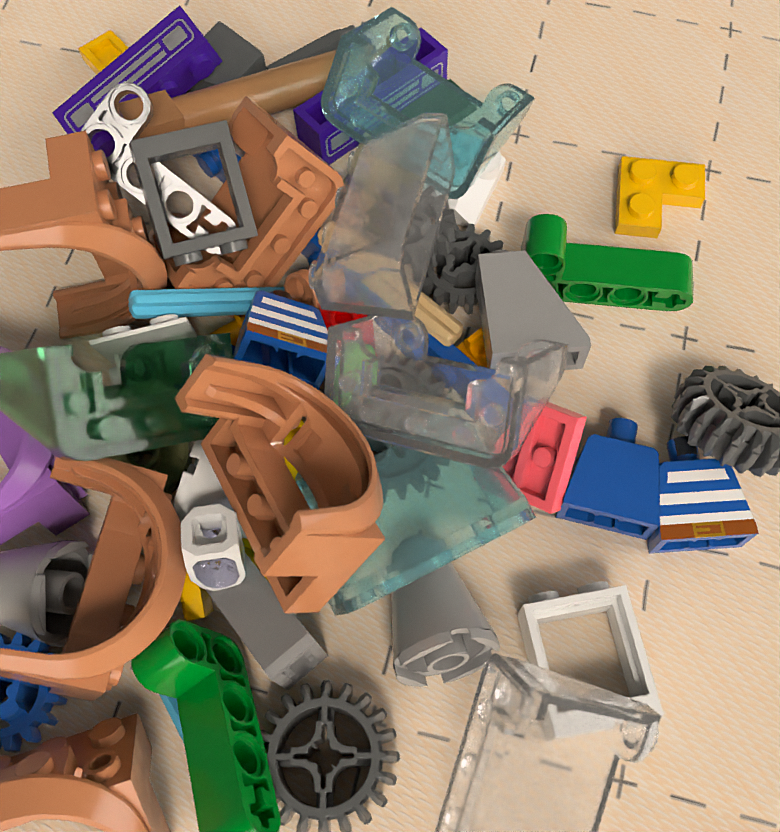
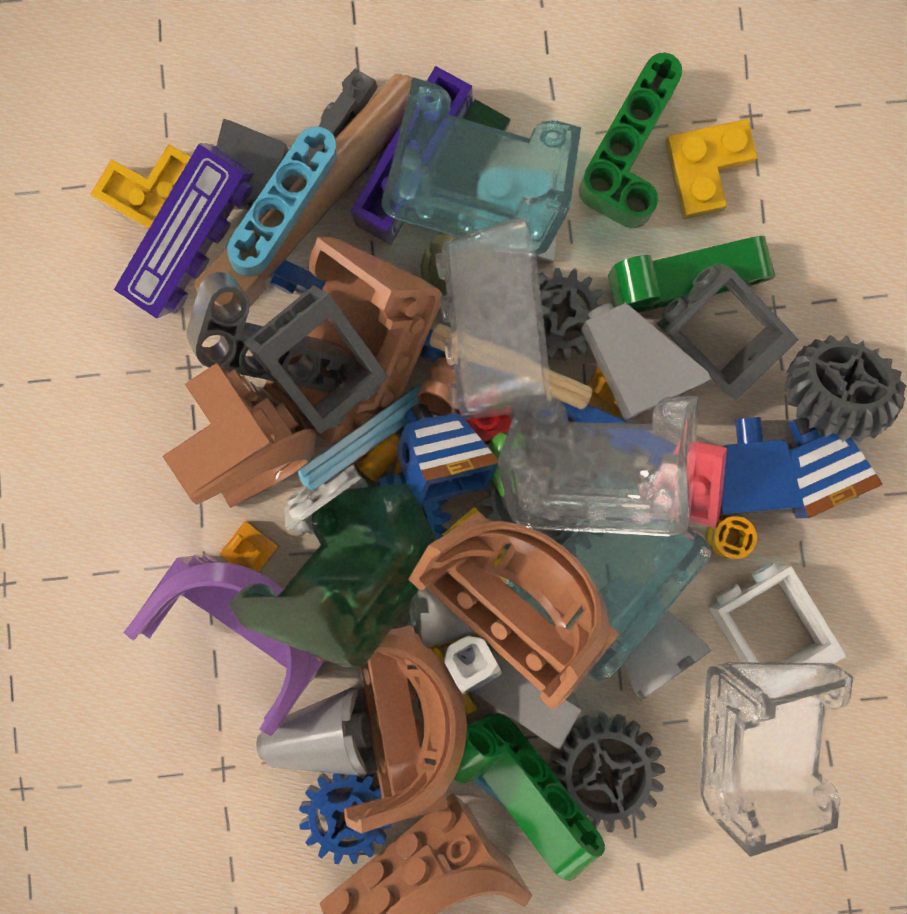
camera: 20 degrees left, 20 degrees up
(187, 91) = (278, 198): none -> medium azure beam
(556, 166) = (633, 134): none -> green beam
(562, 548) = (724, 539): none -> light orange wheel
(662, 306) = (755, 356): none -> dark grey window

